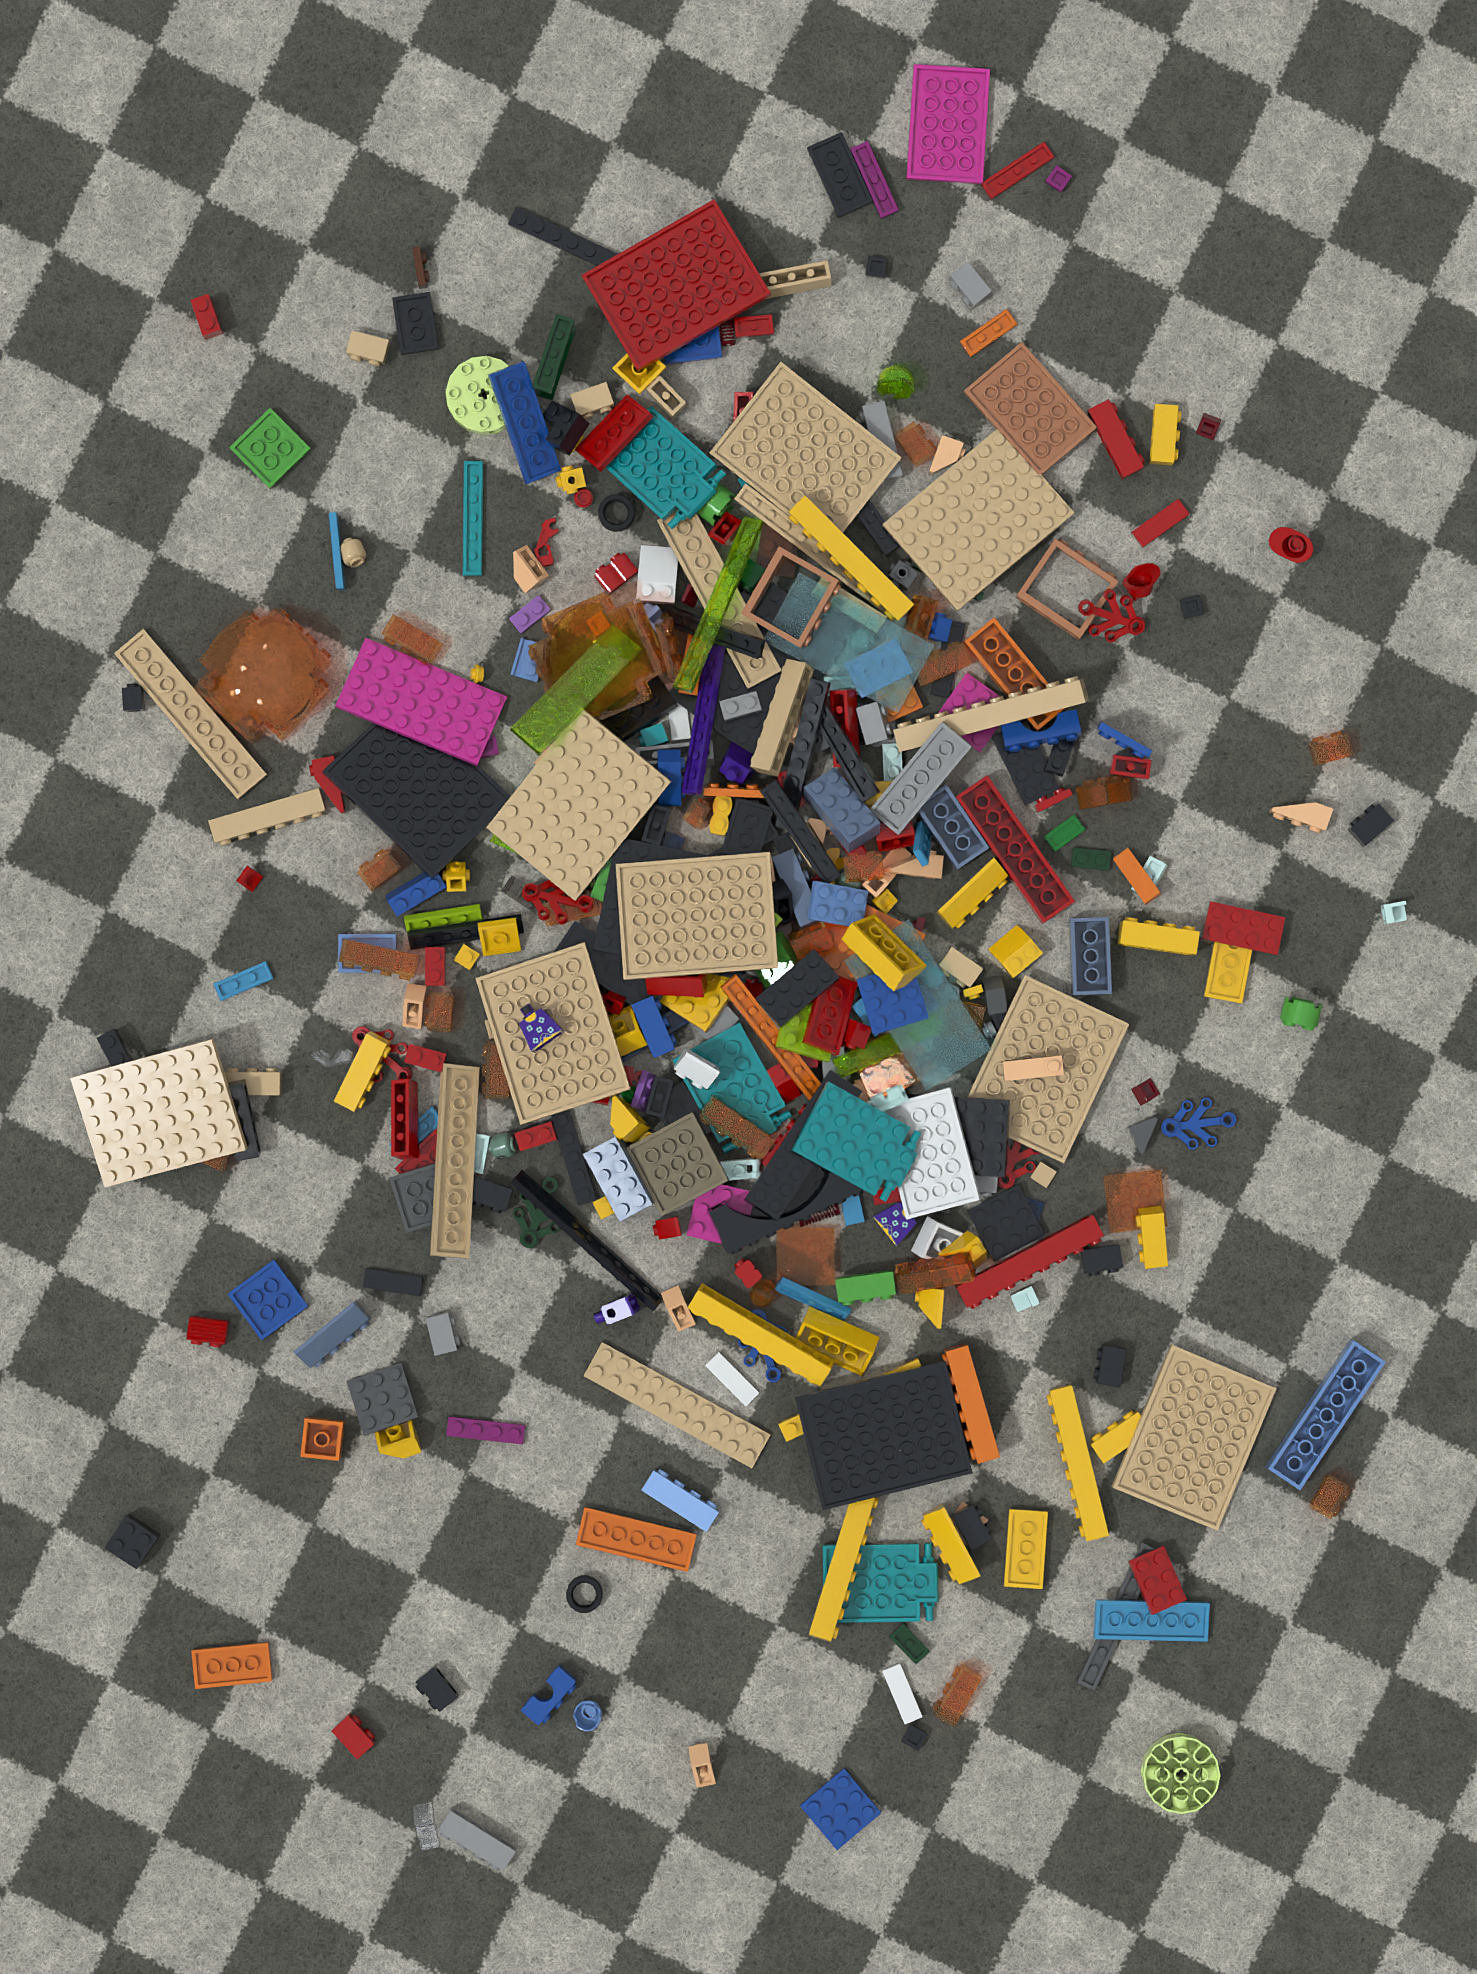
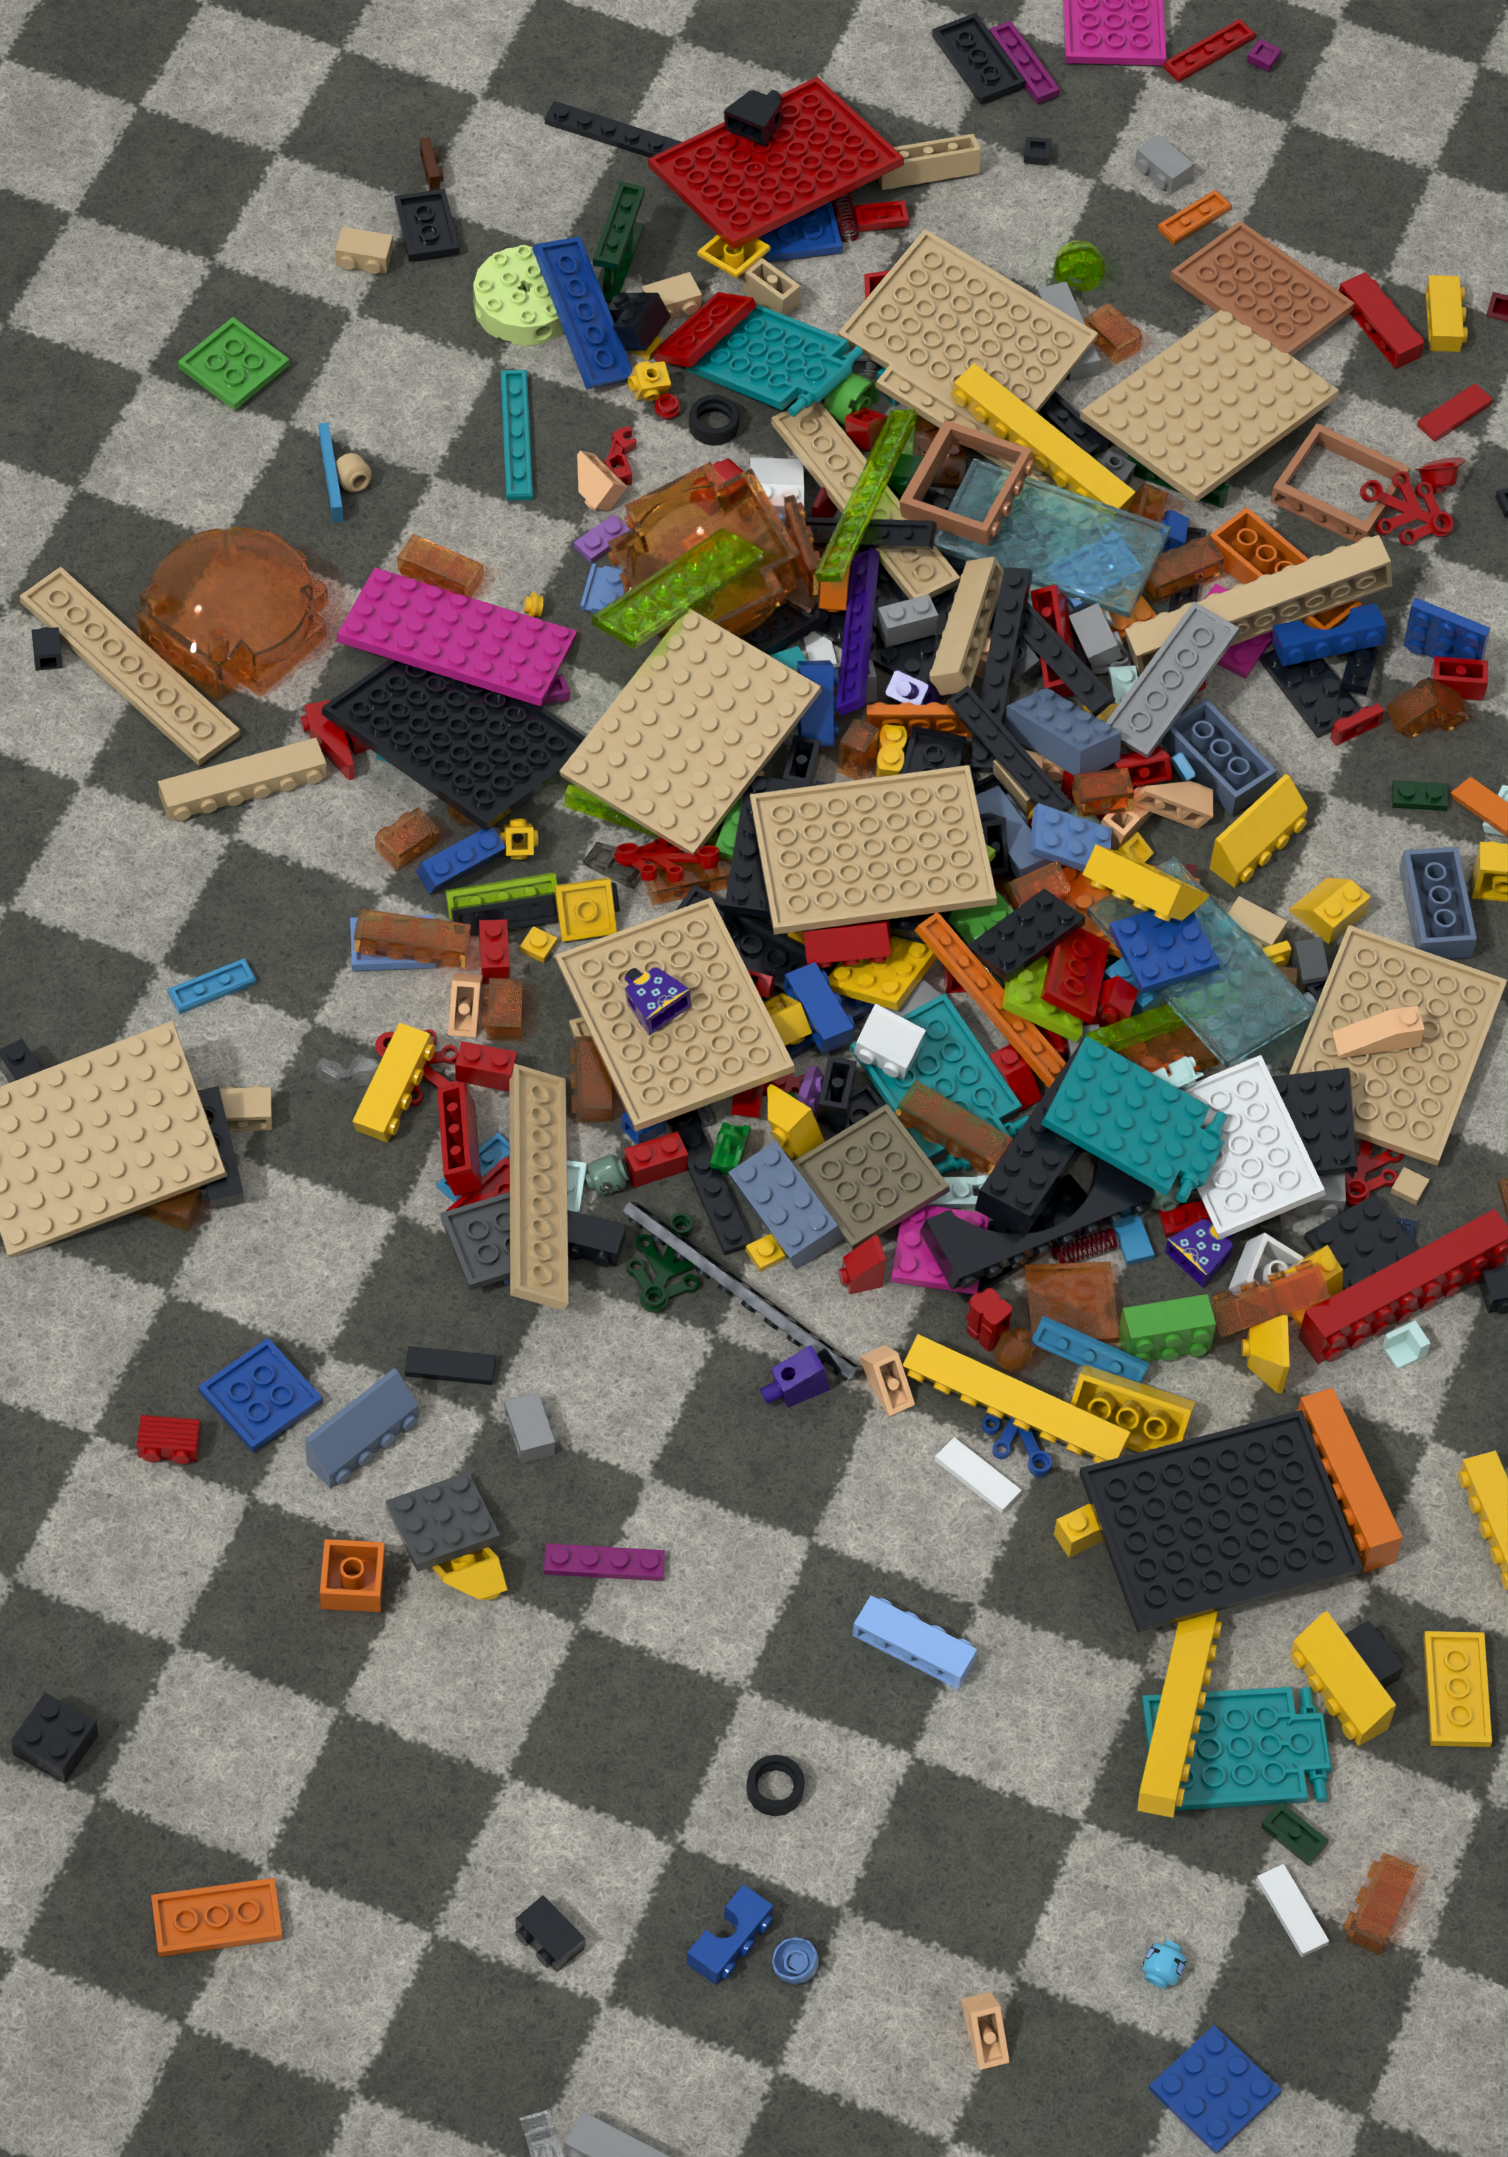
camera: 10 degrees left, 30 degrees down
(206, 316) = (144, 222): red brick -> none
(249, 878) = (218, 856): red plate -> none
(354, 1735) = (418, 2011): red brick -> none
(586, 1130) = (730, 1147): none -> green hips
(636, 1539) = (850, 1702): orange plate -> none
(664, 244) = (755, 116): none -> black torso
(677, 1405) = (897, 1514): tan plate -> none
(817, 1728) = (1164, 1964): none -> medium azure head
(914, 1737) = (1320, 1972): black plate -> none
(947, 454) = (1156, 338): light nougat slope -> none
(1015, 849) = (1335, 799): red brick -> none
(1064, 833) = (1377, 766): green tile -> none

